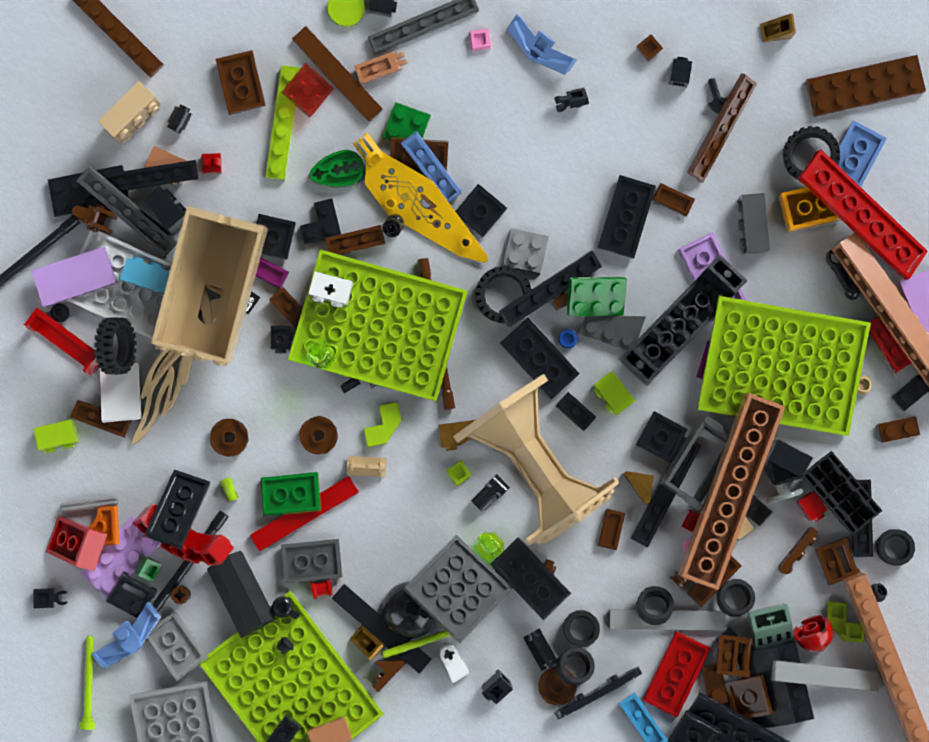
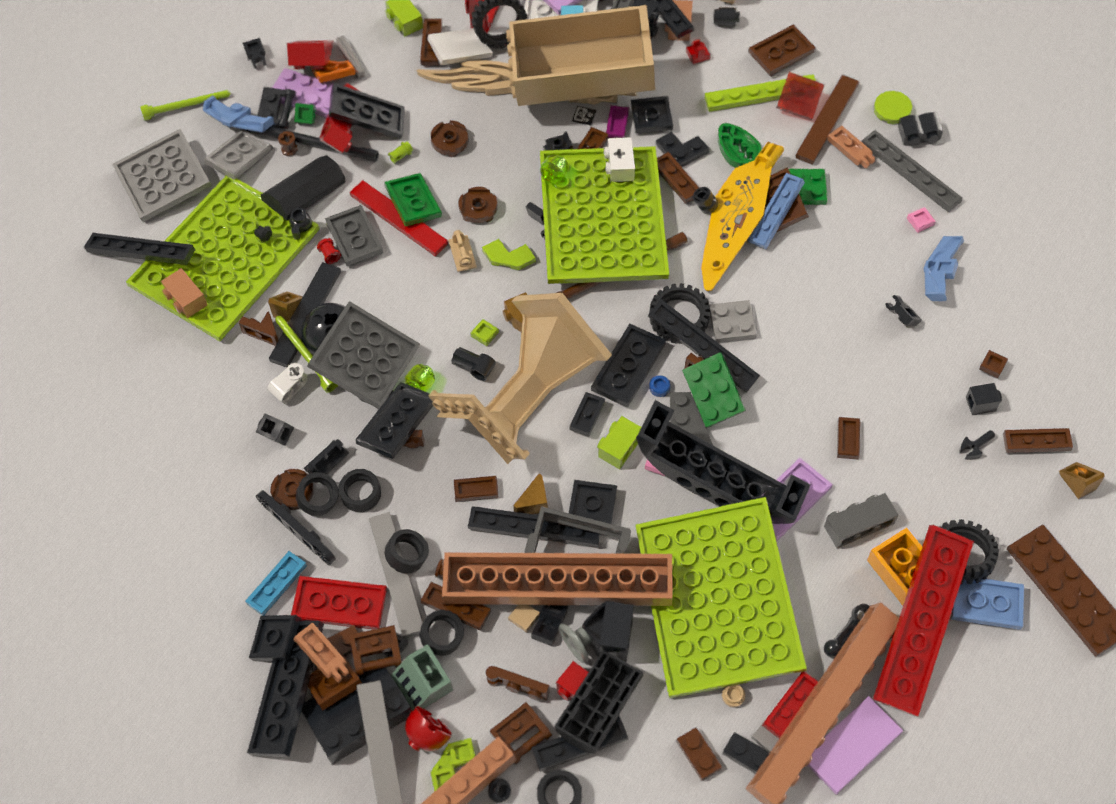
camera: 75 degrees right, 25 degrees down
(480, 210) = (754, 269): black plate -> none
(626, 217) = (809, 397): black plate -> none
(722, 127) = (947, 457): reddish brown tile -> none
(728, 700) = (321, 652): none -> nougat hinge
(732, 46) = (1037, 440): none -> reddish brown plate

